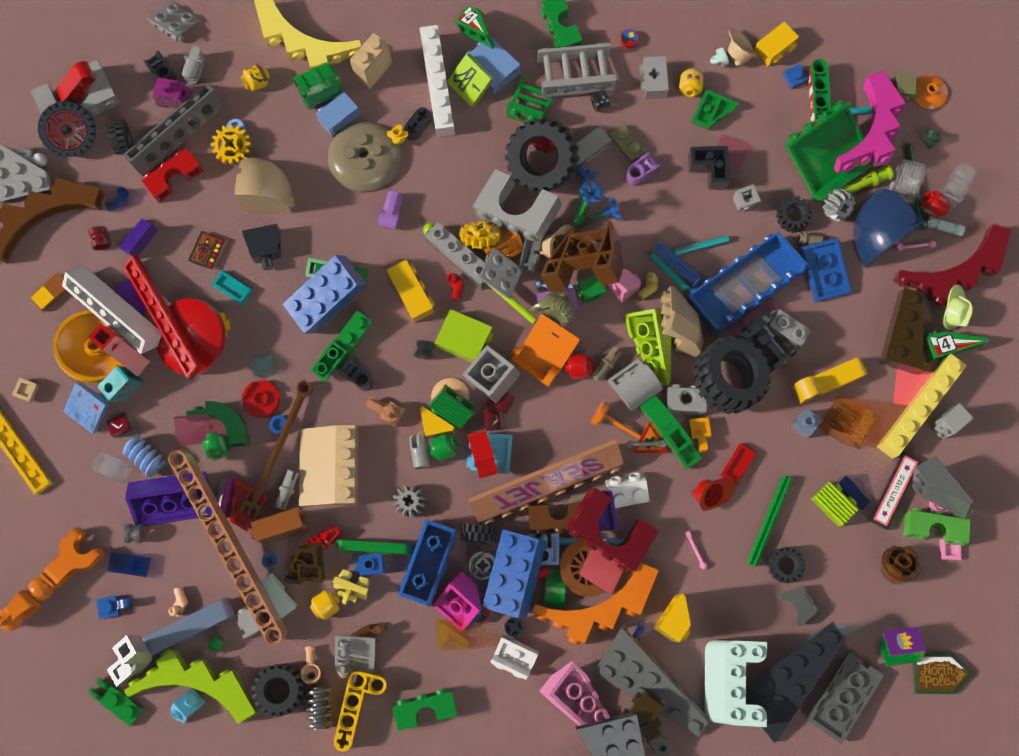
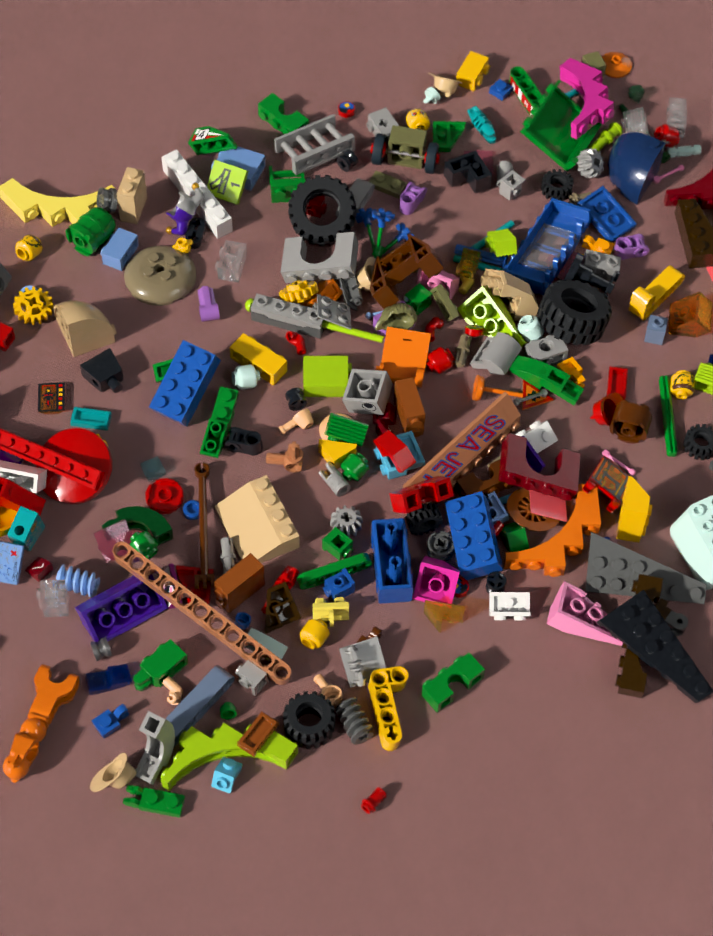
camera: 30 degrees left, 20 degrees down
(88, 663) = (115, 774): none -> tan piece
(177, 573) = (164, 662): none -> green hinge
(224, 687) = (257, 734): none -> dark orange tile
(343, 58) = (107, 199): none -> dark grey wheel
(389, 306) = (245, 377): none -> light aqua head
(389, 515) = (336, 539): none -> green brick
(413, 98) = (185, 210): none -> piece
(421, 375) = (302, 419): none -> light nougat bar
(440, 173) = (231, 261): none -> clear brick
(493, 514) = (413, 496): none -> red arch
(521, 409) = (409, 406): none -> dark orange brick
(589, 324) = (435, 323): none -> red arm
(614, 313) = (443, 301): none -> olive plate
(628, 346) = (474, 330): none -> red tile
(658, 272) = (469, 263): none -> clear yellow slope
(662, 112) = (406, 149): none -> olive brick
(674, 570) = (610, 480): none -> flag
(682, 370) = (530, 328): none -> light aqua head
(701, 262) = (501, 242): none -> lime brick
(726, 518) = (631, 422): none -> reddish brown brick
(748, 177) = (503, 169): none -> light grey cone
(755, 111) = (482, 124): none -> teal hinge
(800, 495) = (682, 384): none -> yellow head
(802, 304) = (600, 245): none -> light orange plate
(834, 317) = (630, 247): none -> medium lavender piece

